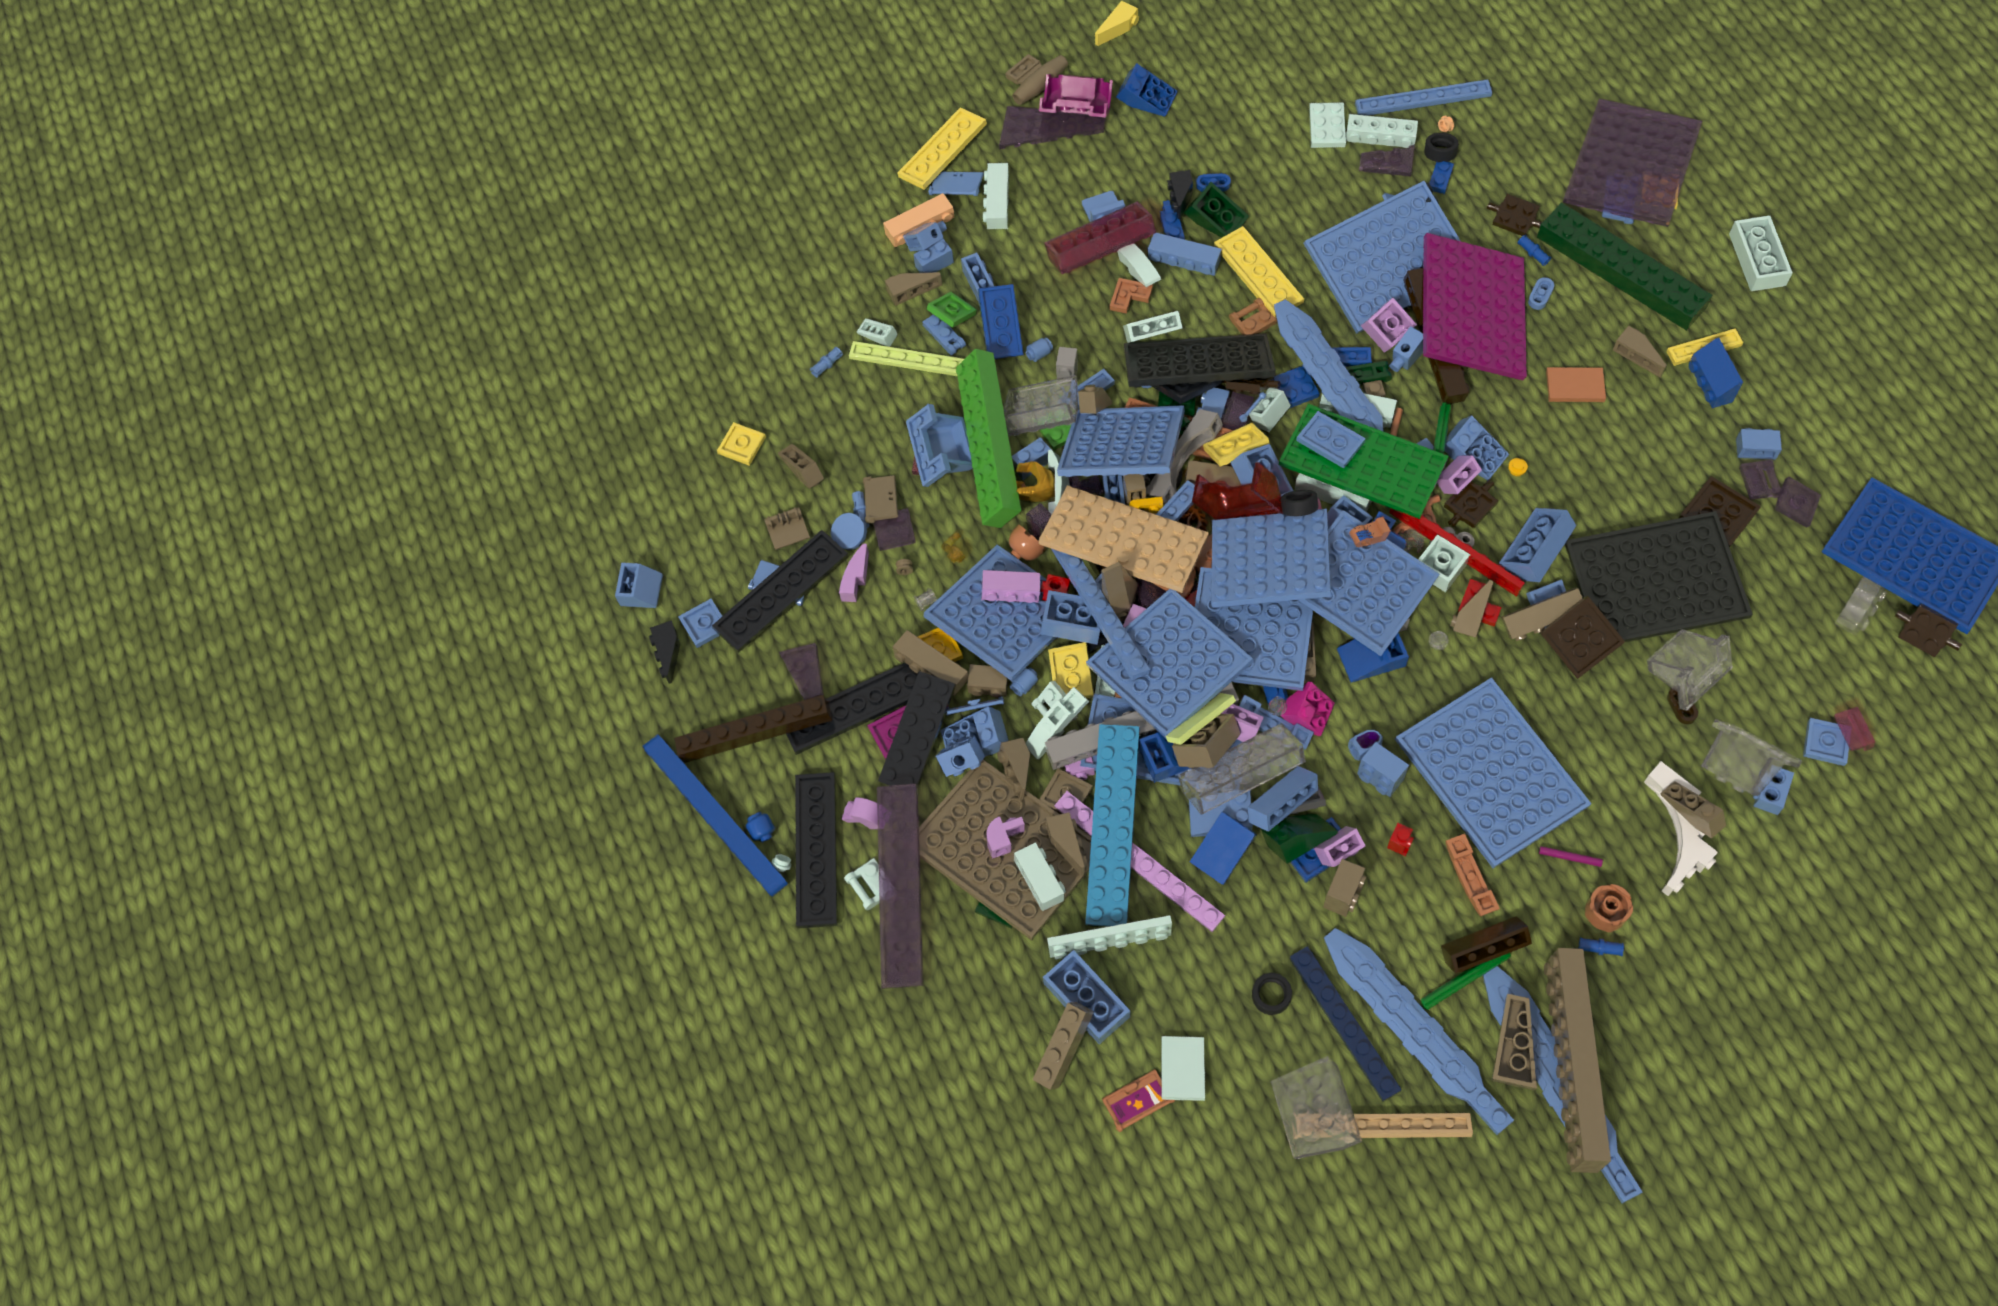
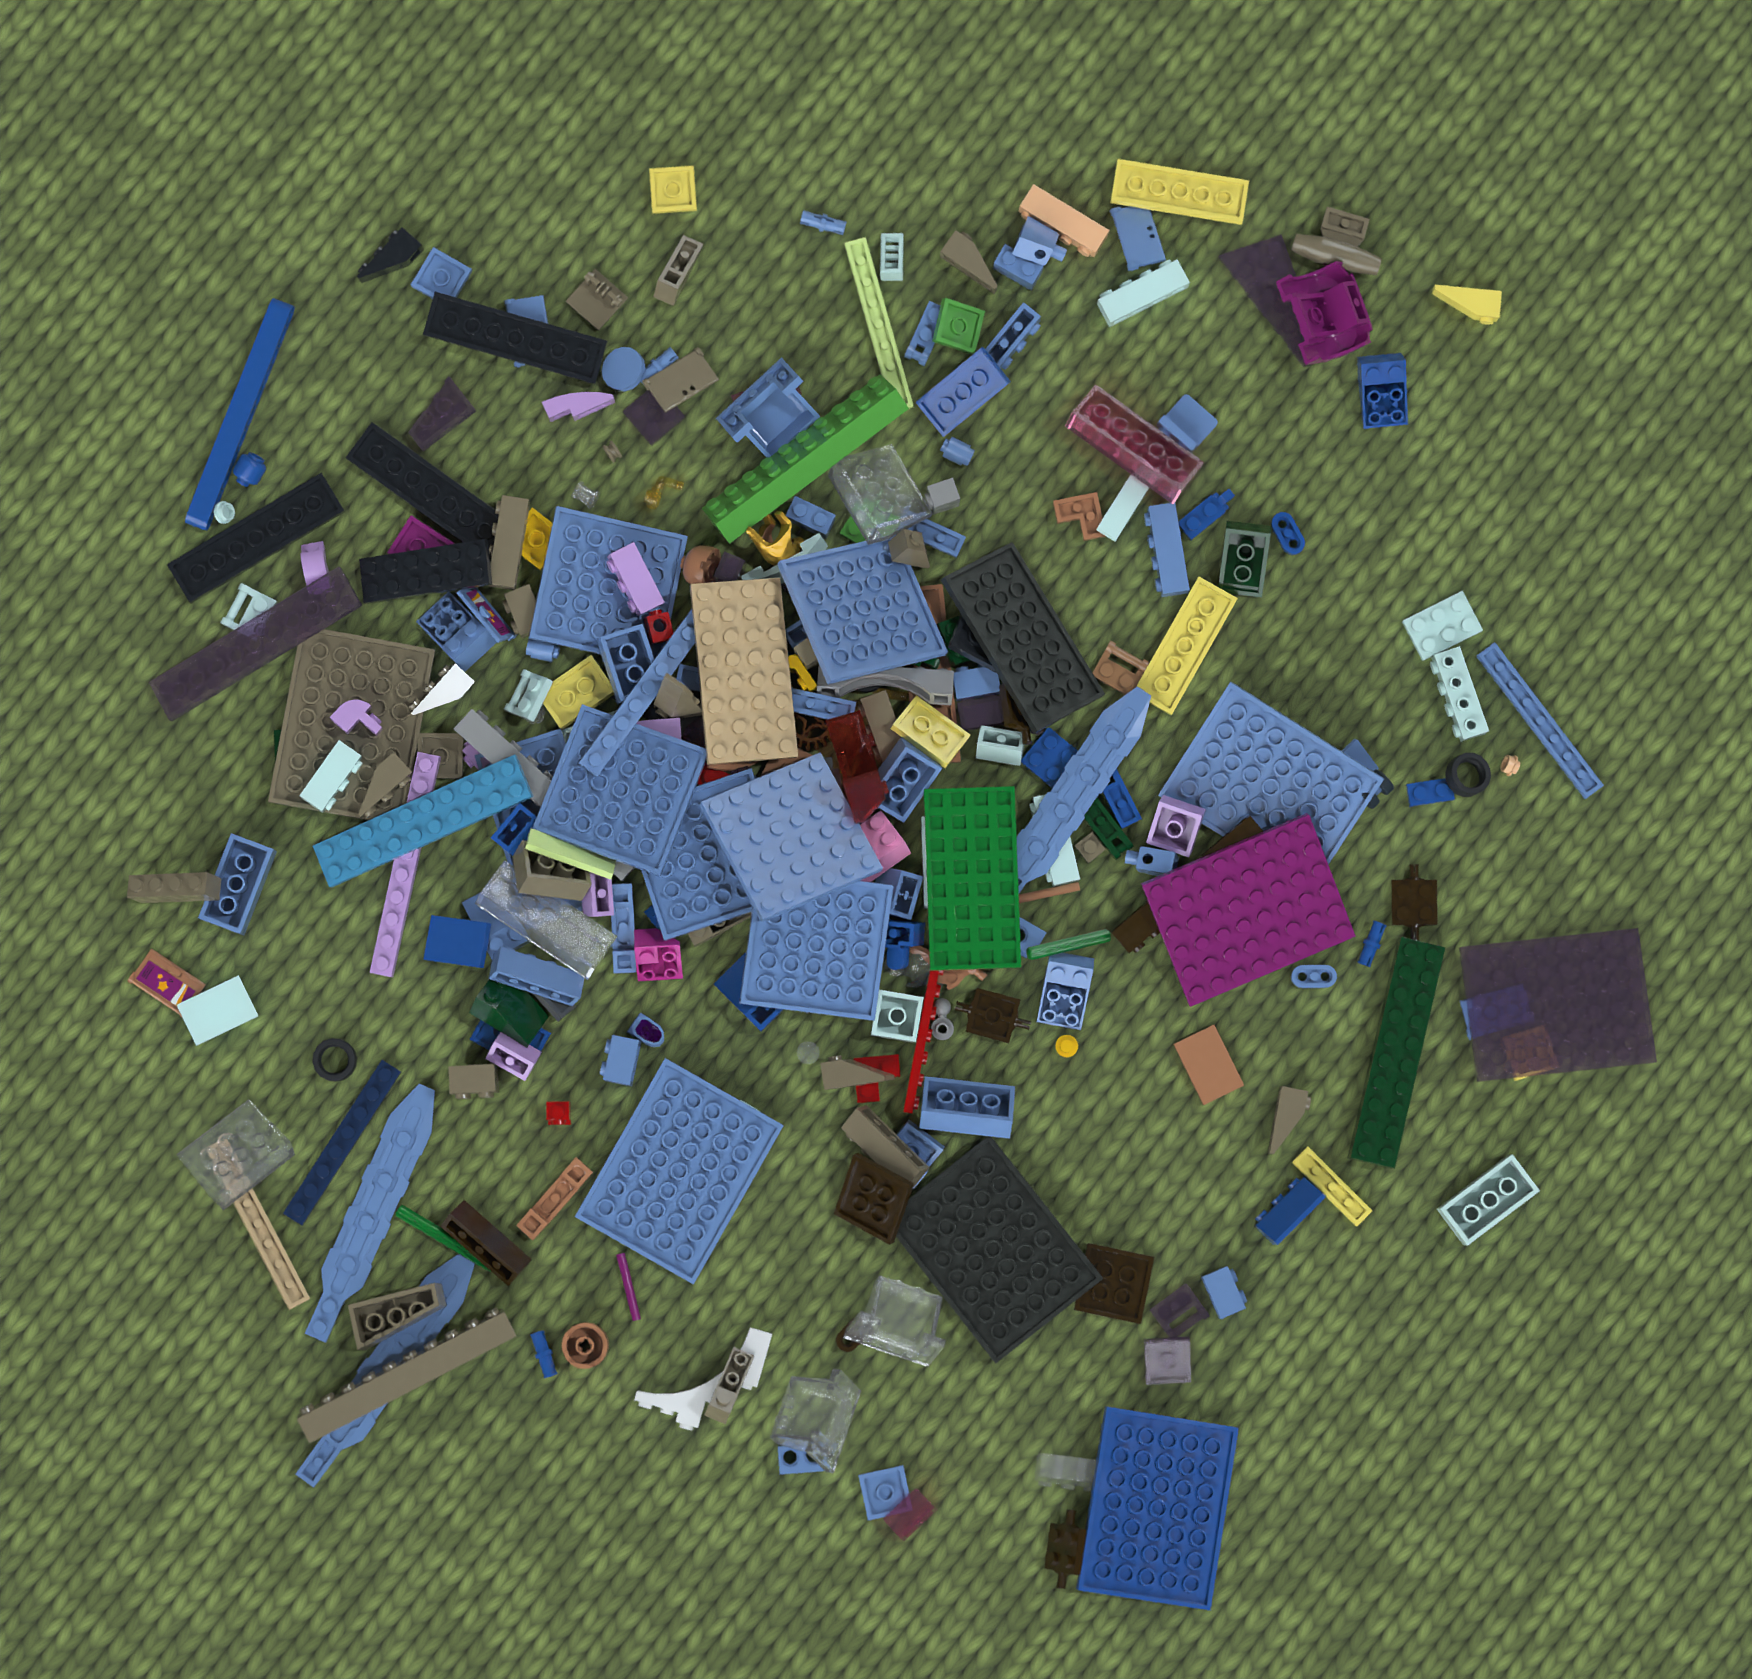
camera: 50 degrees right, 20 degrees up
(638, 586) = (445, 184): medium blue slope -> none
(753, 729) = (345, 402): dark brown brick -> none
(968, 749) = (421, 630): medium blue brick -> none
(1055, 721) = (506, 707): light aqua slope -> none
(1110, 936) = (300, 871): light aqua plate -> none
(1152, 327) = (1045, 564): light aqua brick -> none
(1181, 190) = (1254, 504): black slope -> none
(1243, 417) = (970, 723): medium blue hinge -> none
(1277, 706) = (641, 922): clear plate -> none
(1299, 503) = (882, 829): black tyre -> none
(1330, 439) = (974, 832): medium blue plate -> none
(1370, 533) = (874, 926): nougat leg -> none
(1389, 162) = (1419, 722): wing -> none
(1458, 474) = (1018, 987): lavender brick -> none

